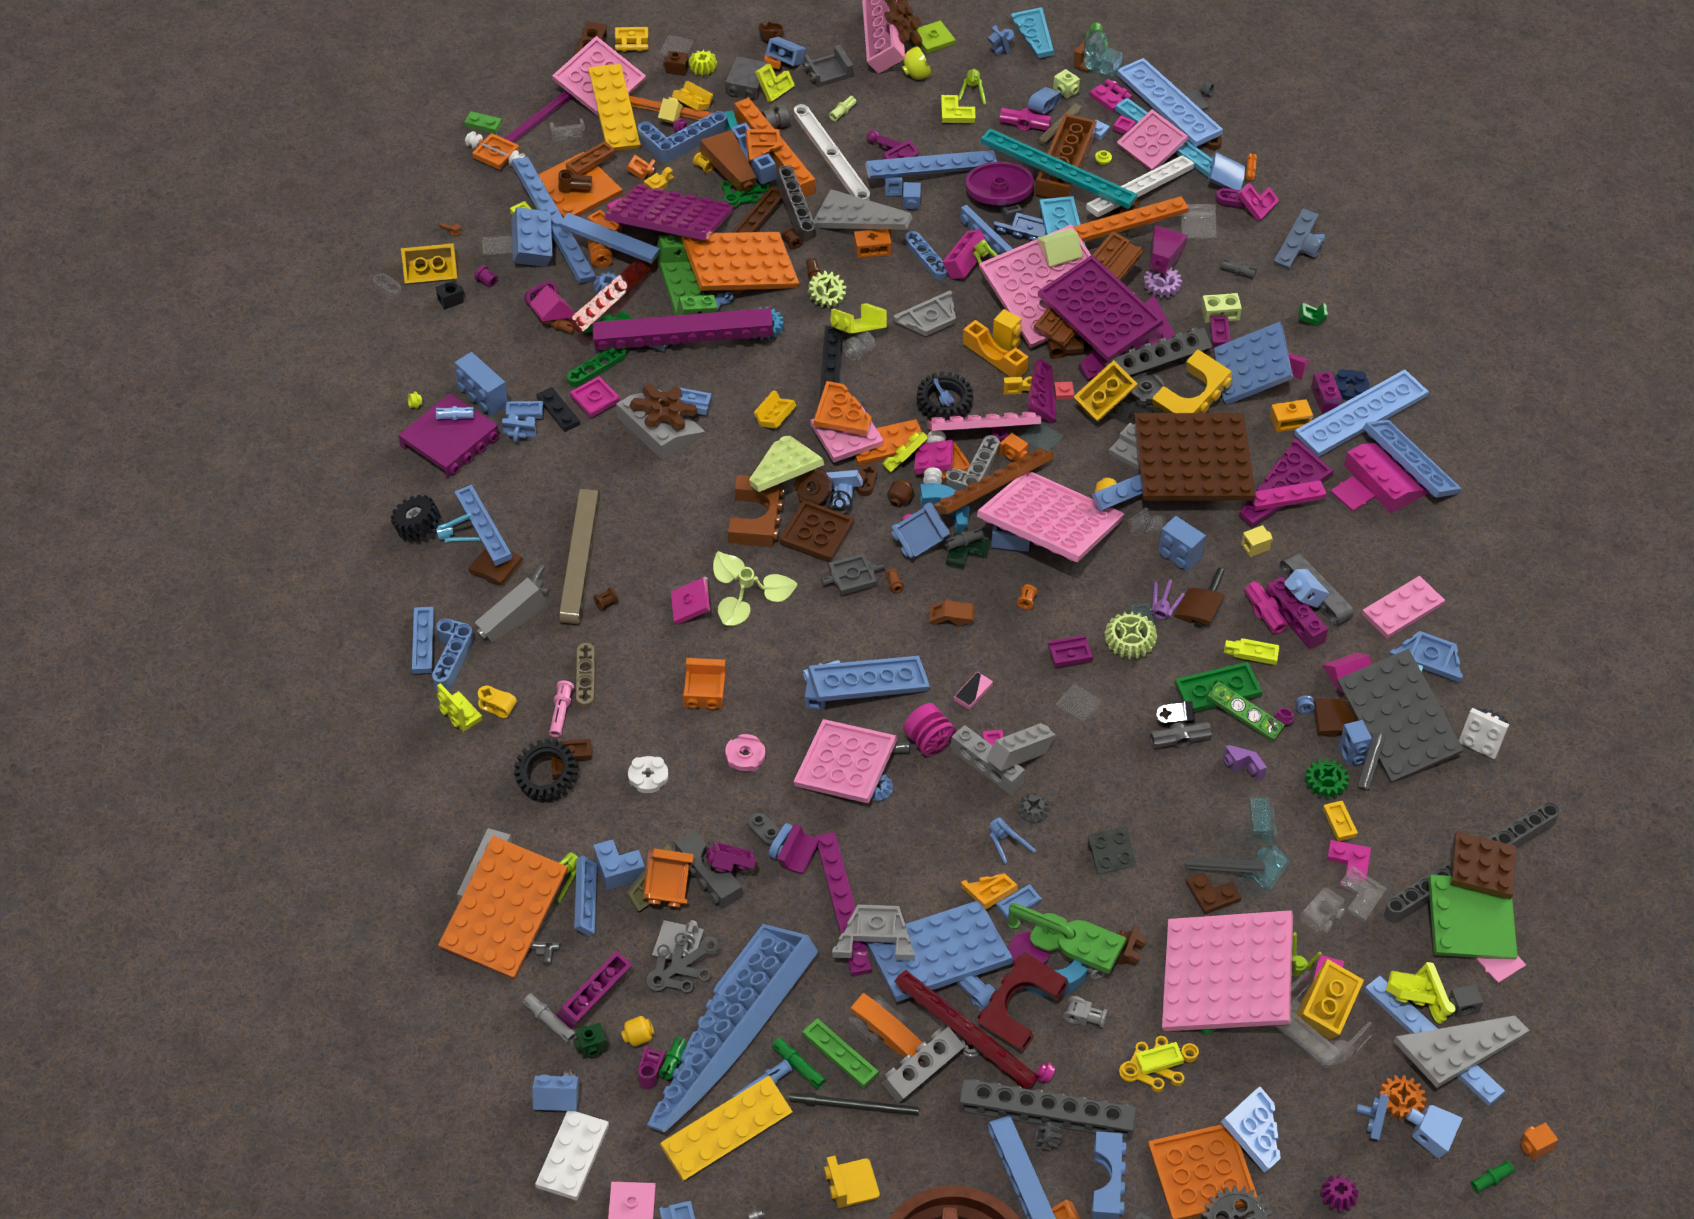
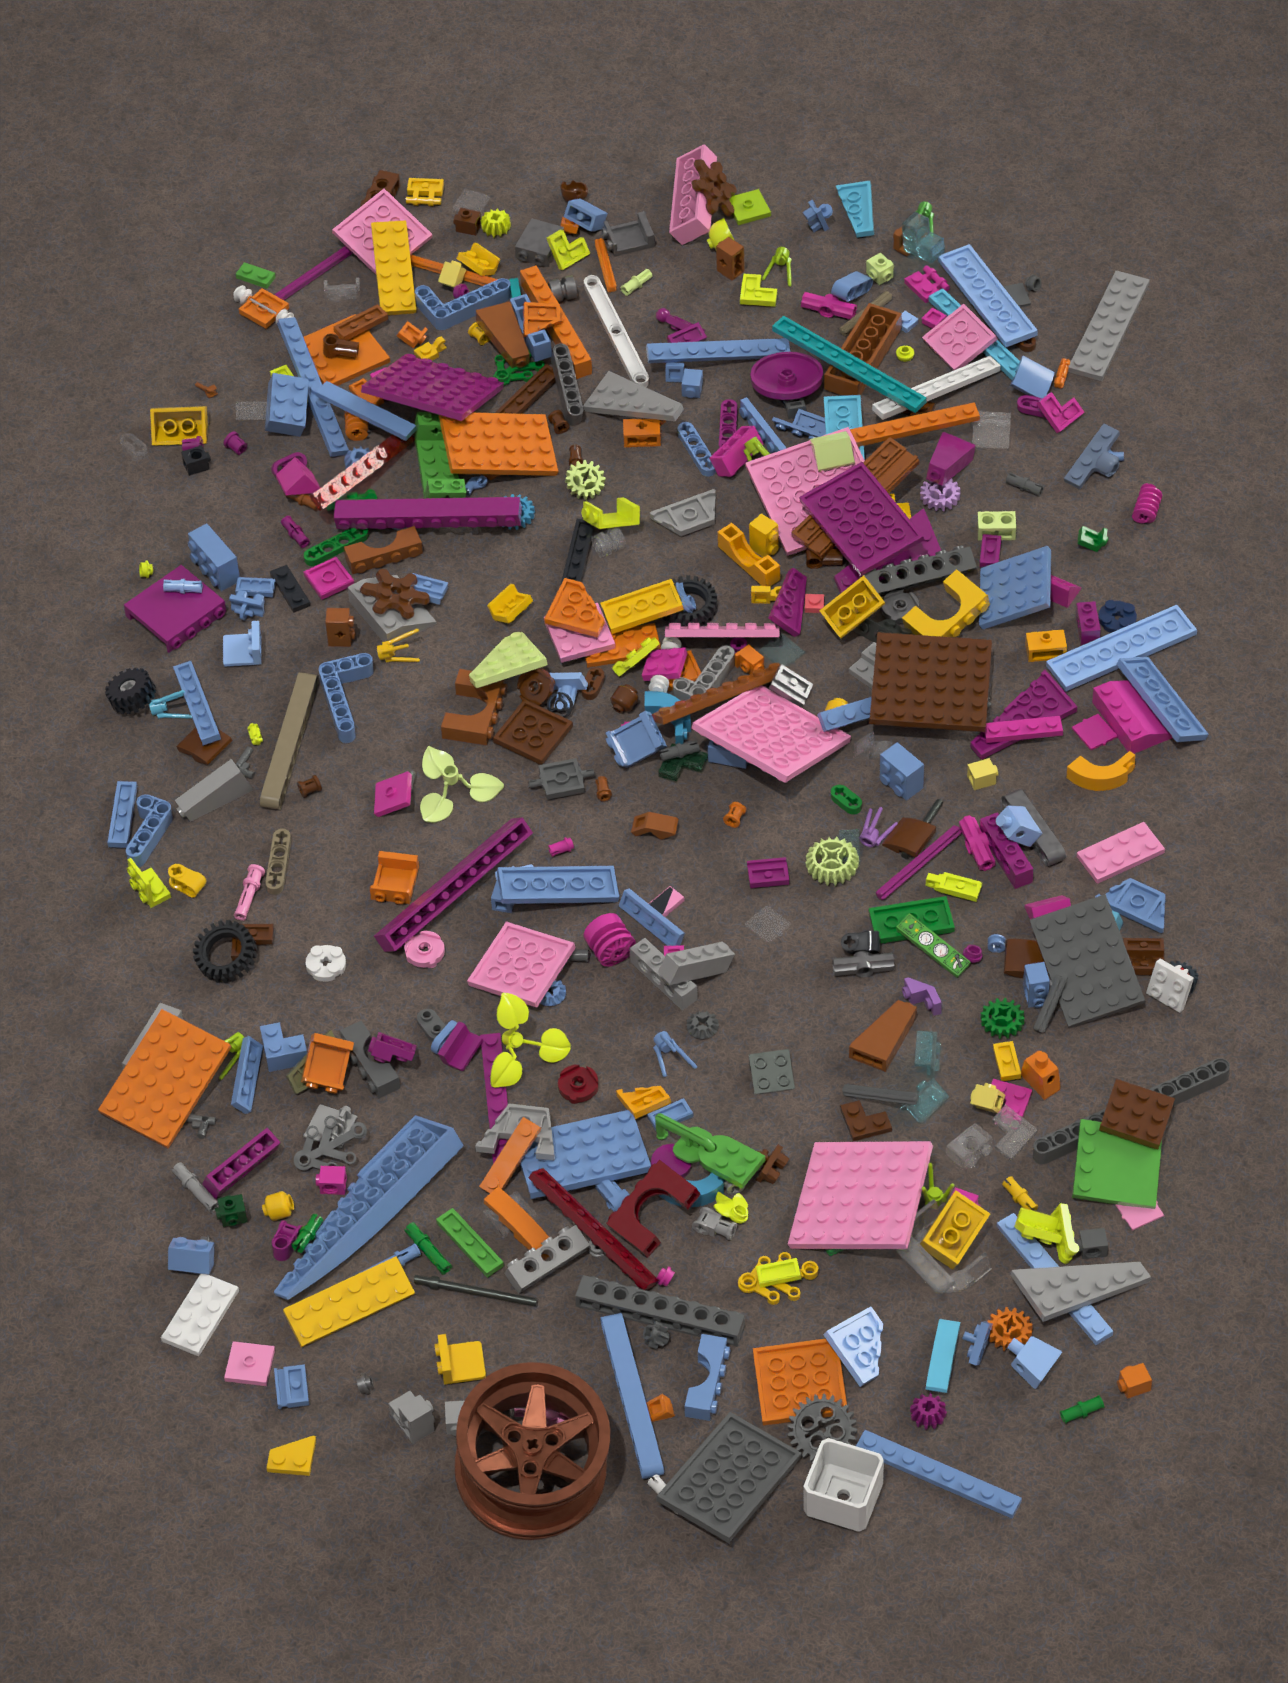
camera: 10 degrees right, 0 degrees up
(444, 278) = (191, 443): none -> magenta bush
(521, 469) = (243, 648): none -> light blue bracket
(544, 551) = (255, 734): none -> neon yellow piece
(555, 355) = (295, 531): none -> magenta pin
(612, 493) = (334, 674): none -> medium blue beam
(613, 442) = (339, 627): none -> dark orange brick
(625, 375) = (362, 557): none -> dark orange arch
(661, 462) = (386, 650): none -> yellow plant
(688, 999) = (332, 1180): none -> dark pink brick
(764, 686) = (453, 884): none -> magenta brick
(811, 95) = (605, 265): none -> orange axle
(864, 640) = (560, 847): none -> dark pink pin
(868, 960) = (511, 1156): none -> orange plate
(891, 843) = (510, 1013): none -> neon yellow plant
(903, 403) = (641, 606): none -> yellow plate
(925, 887) = (580, 1093): none -> dark red plate
(927, 81) = (730, 258): none -> dark orange brick
(950, 234) = (727, 428): none -> magenta beam
(965, 705) = (651, 918): none -> medium blue plate
(1058, 469) = (790, 685): none -> plate
(1099, 994) = (733, 1208): none -> neon yellow plate
(1131, 574) = (845, 800): none -> green beam
(1214, 629) = (920, 861): none -> magenta axle
(1215, 807) = (884, 1037): none -> dark orange slope
(1284, 123) = (1108, 325): none -> light grey plate
(1331, 860) = (987, 1098): none -> light yellow brick
(1342, 1132) = (942, 1356): none -> medium azure slope
(1356, 279) = (1147, 504): none -> dark pink piece
(1368, 536) = (1101, 777): none -> light orange arch
(1378, 831) = (1041, 1074): none -> orange torso
(1382, 956) = (1019, 1195): none -> yellow pin
(1453, 703) = (1144, 953): none -> reddish brown slope

